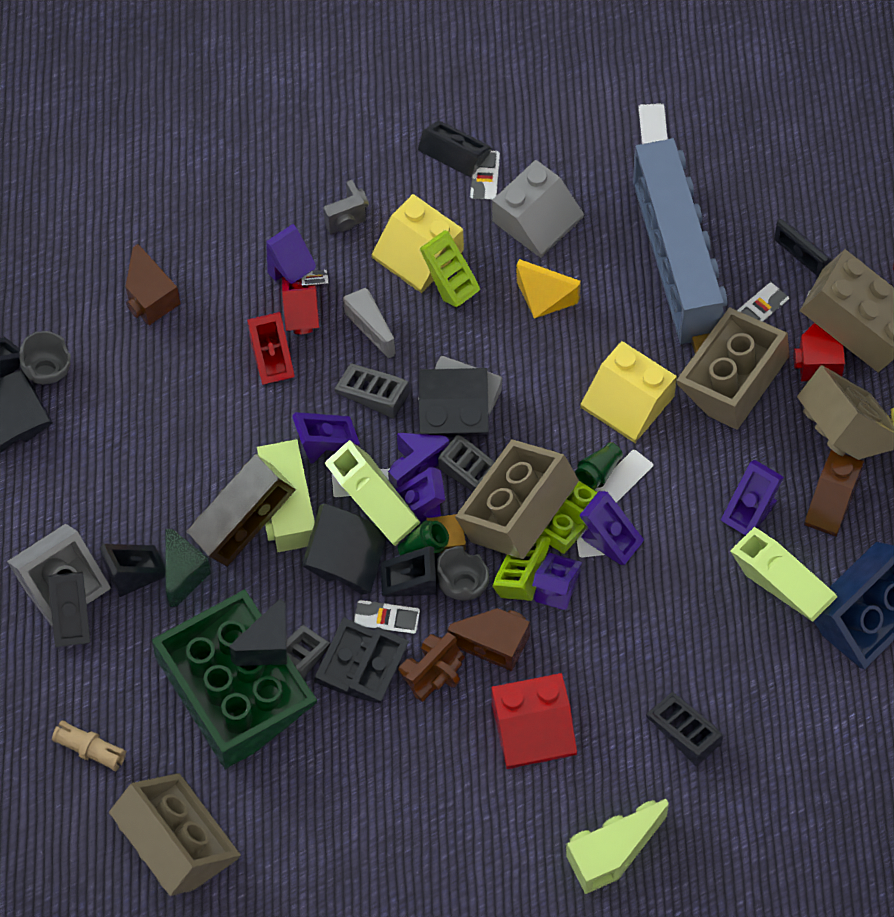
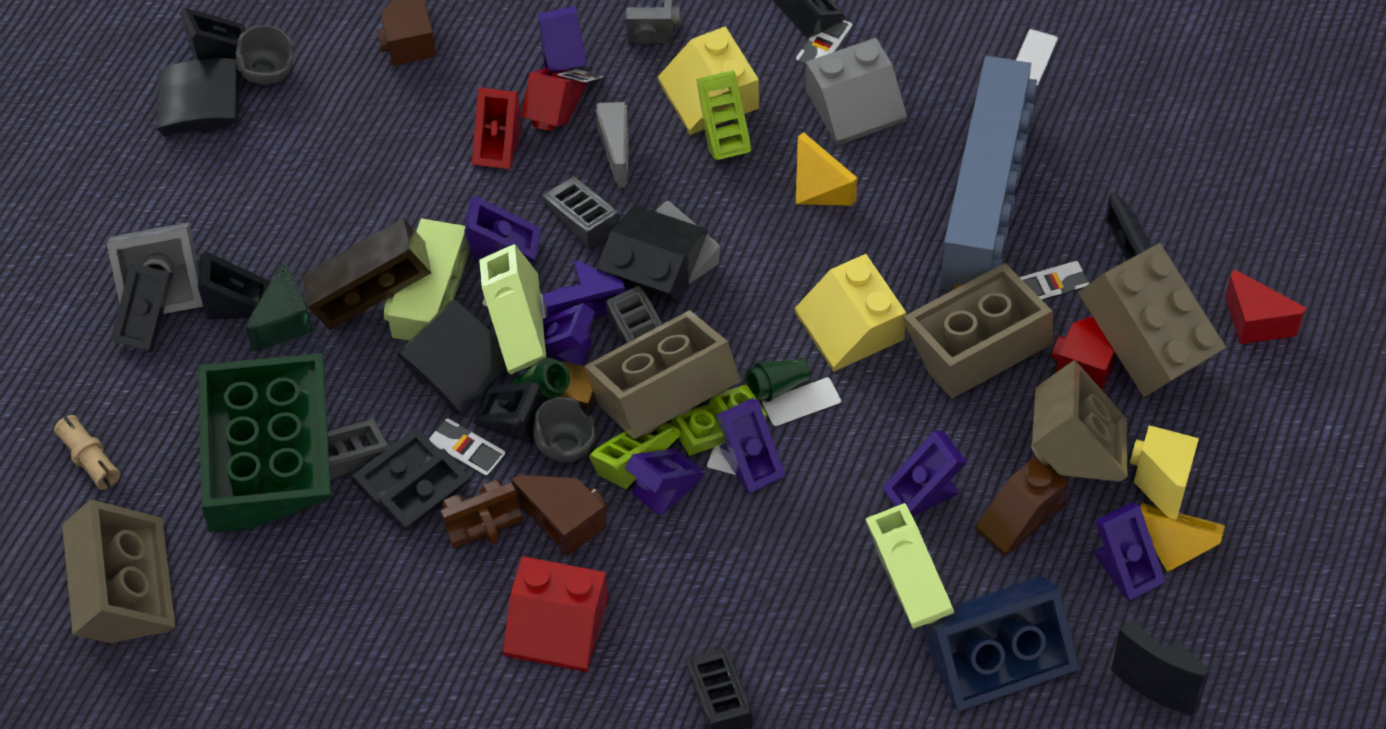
camera: 25 degrees right, 5 degrees down
(264, 640) = (307, 408): black slope -> none

